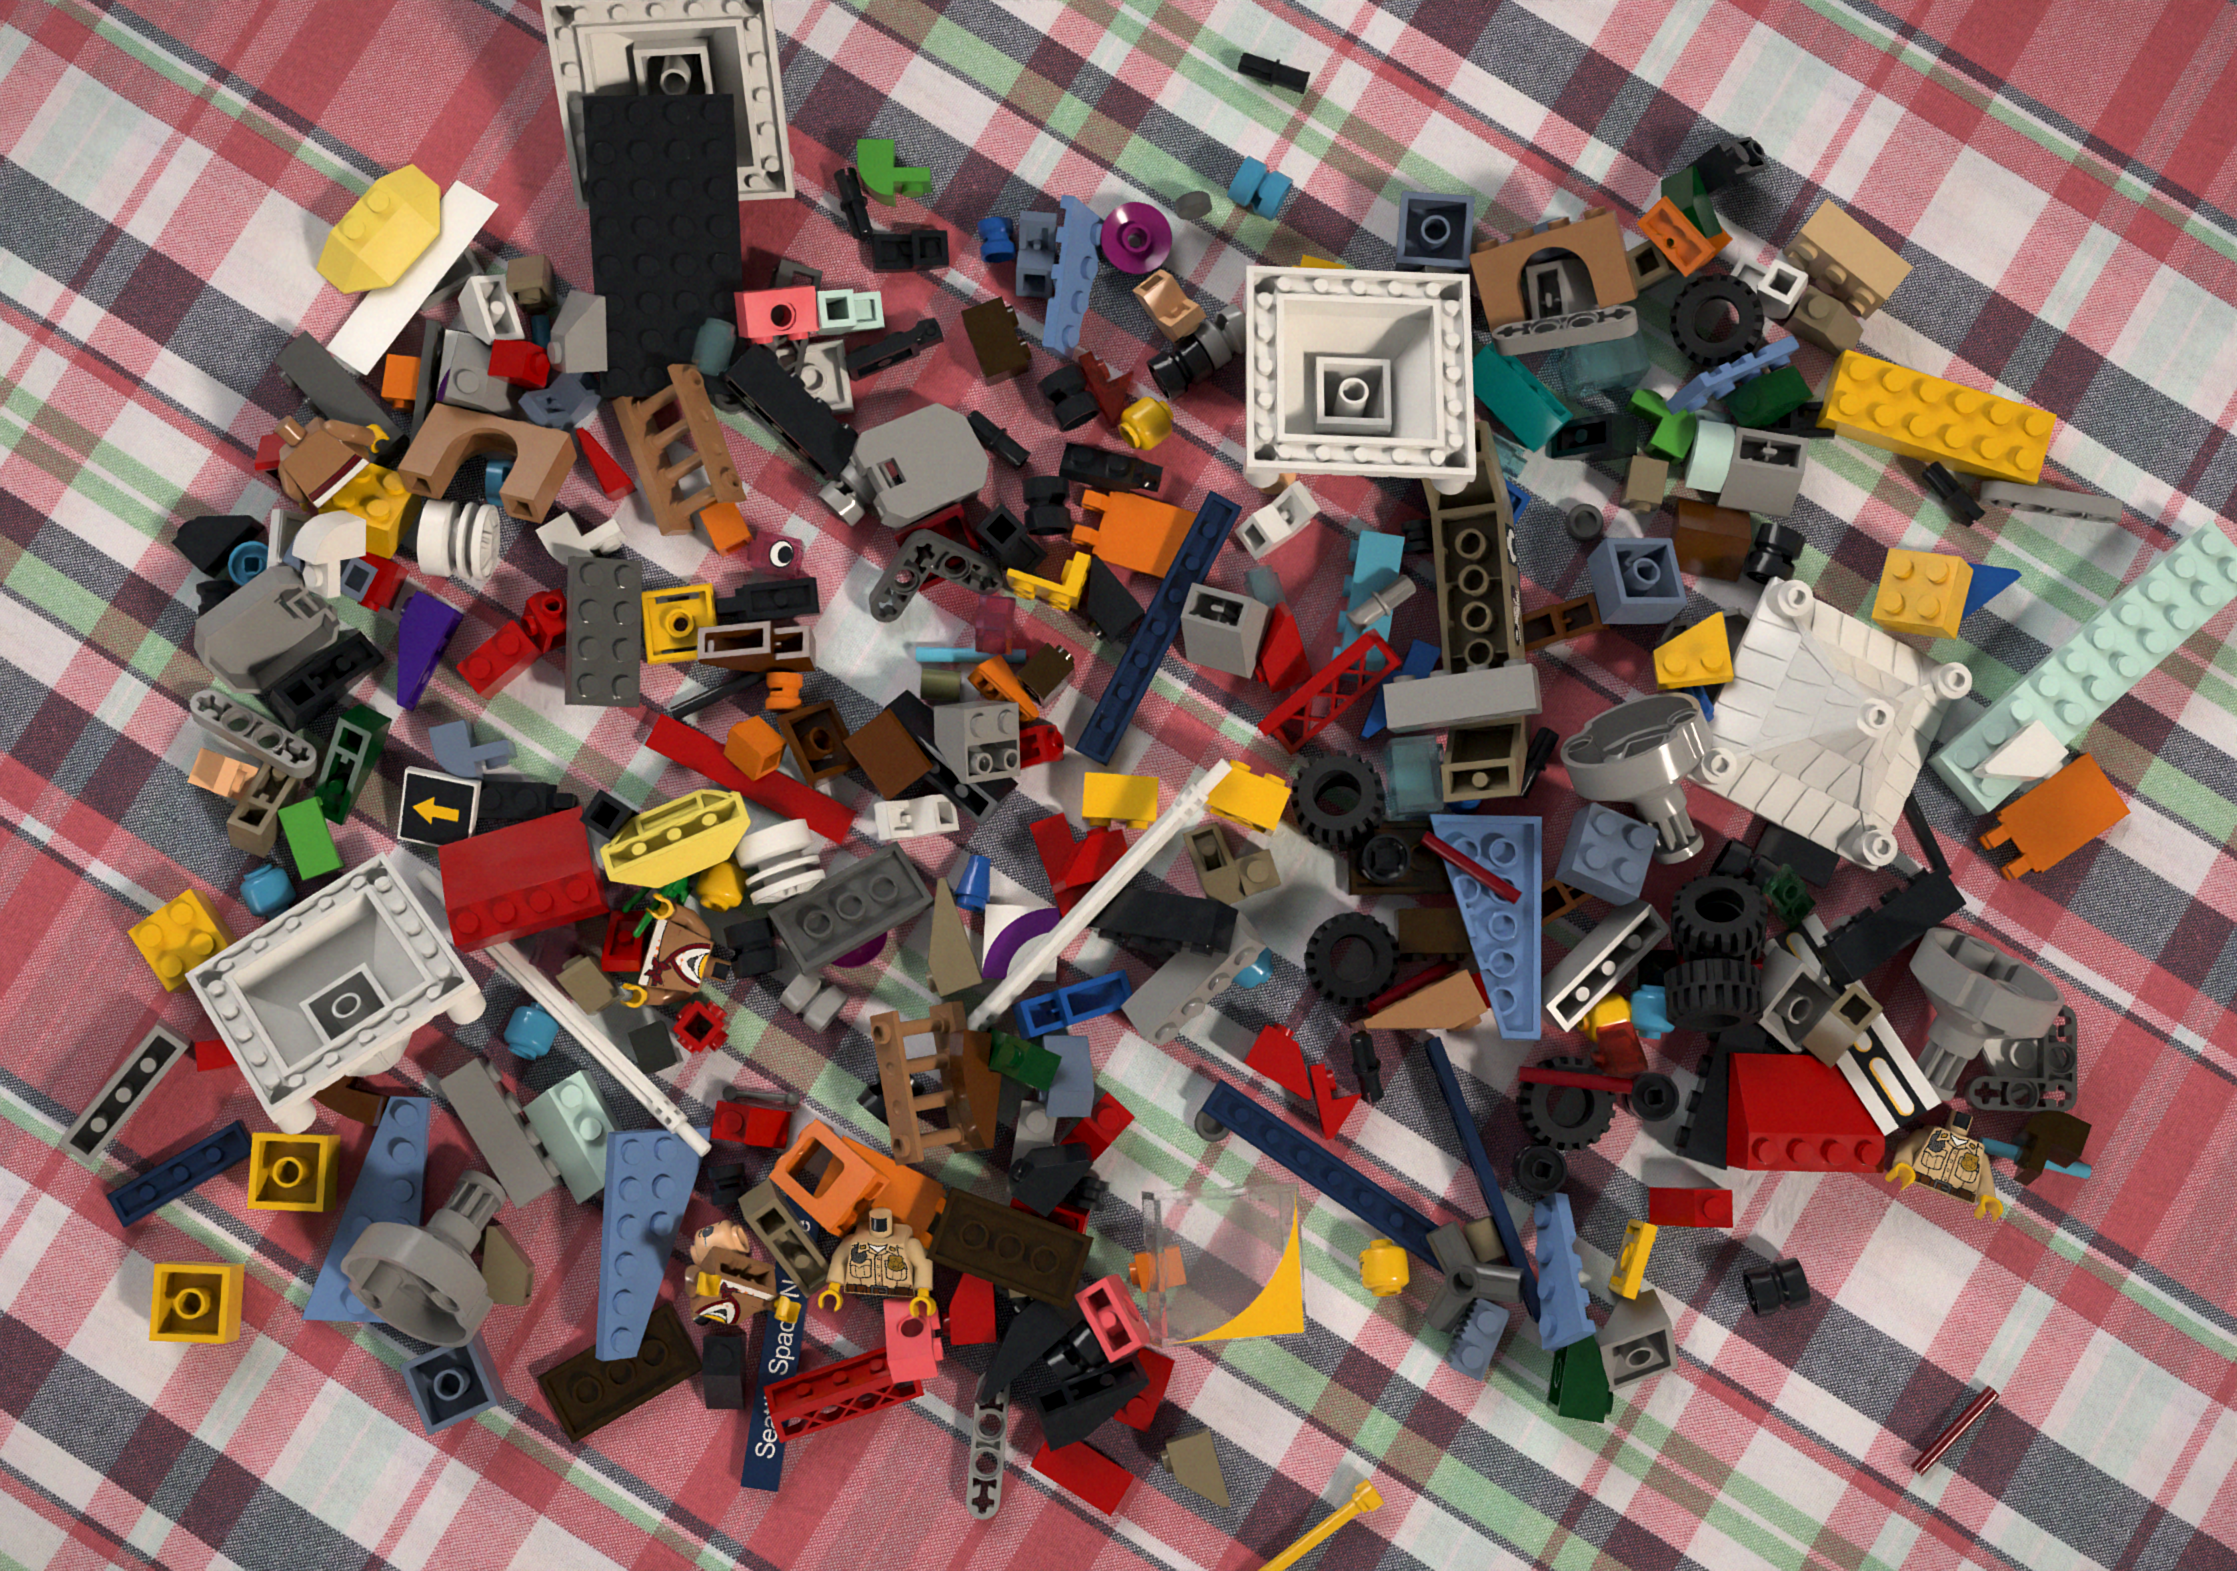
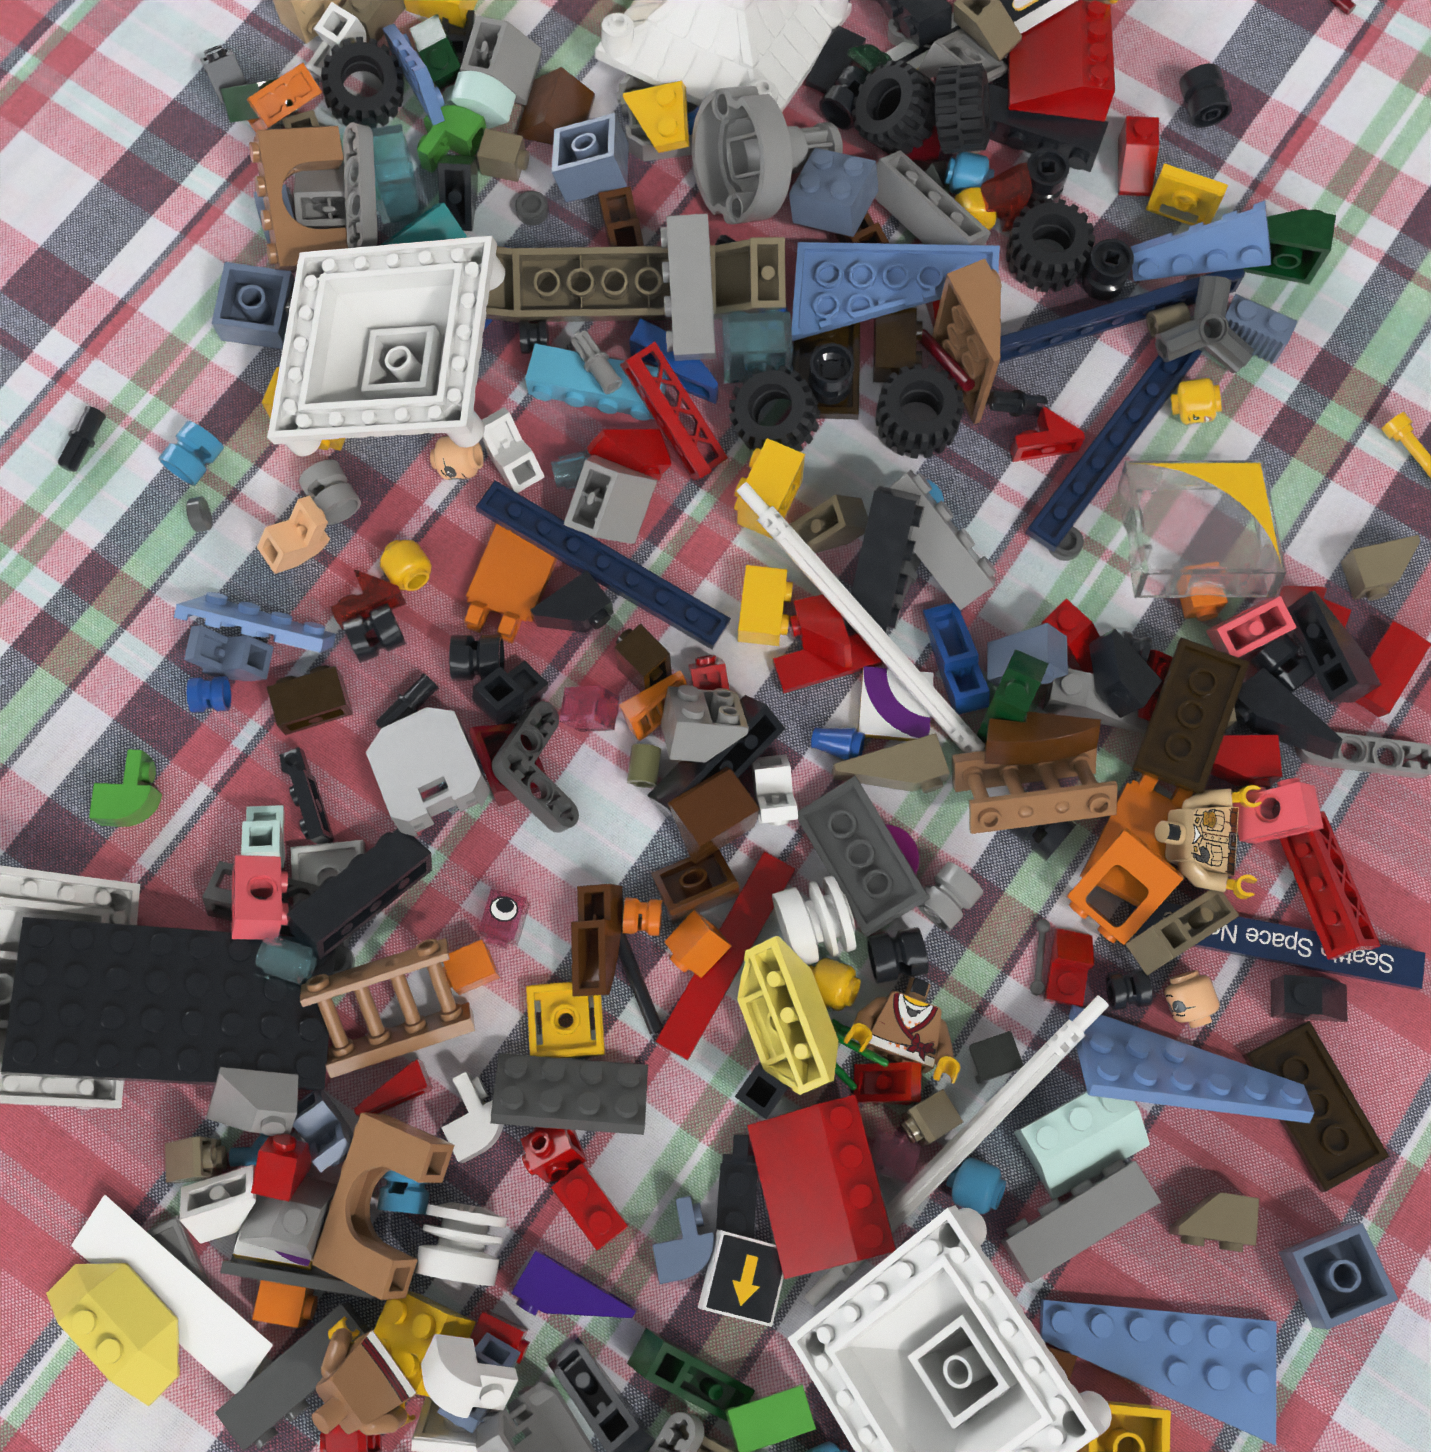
camera: 85 degrees left, 10 degrees down
(425, 1275) = (1238, 1289): light grey piece -> none
(688, 1026) = (986, 1000): red brick -> none
(733, 1288) = (1233, 981): torso -> none
(772, 601) = (549, 925): black hinge -> none
(848, 495) = (449, 843): light grey wheel -> none
(853, 203) = (154, 830): black axle -> none
(910, 252) = (210, 779): black slope -> none
(968, 655) = (615, 746): medium azure bar -> none
(1060, 597) = (558, 635): yellow bracket -> none
(1109, 469) = (446, 601): black hinge -> none
(1140, 221) = (224, 553): magenta dish -> none
(1179, 368) = (354, 529): black wheel -> none
(1257, 873) = (837, 480): dark tan brick -> none
(1279, 1059) = (1009, 478): red slope -> none
(1471, 867) = (842, 298): dark red bar -> none
(1574, 1079) = (1033, 226): dark red bar -> none
(1637, 1341) = (1248, 188): light grey slope -> none
(1775, 552) = (574, 57): black wheel -> none

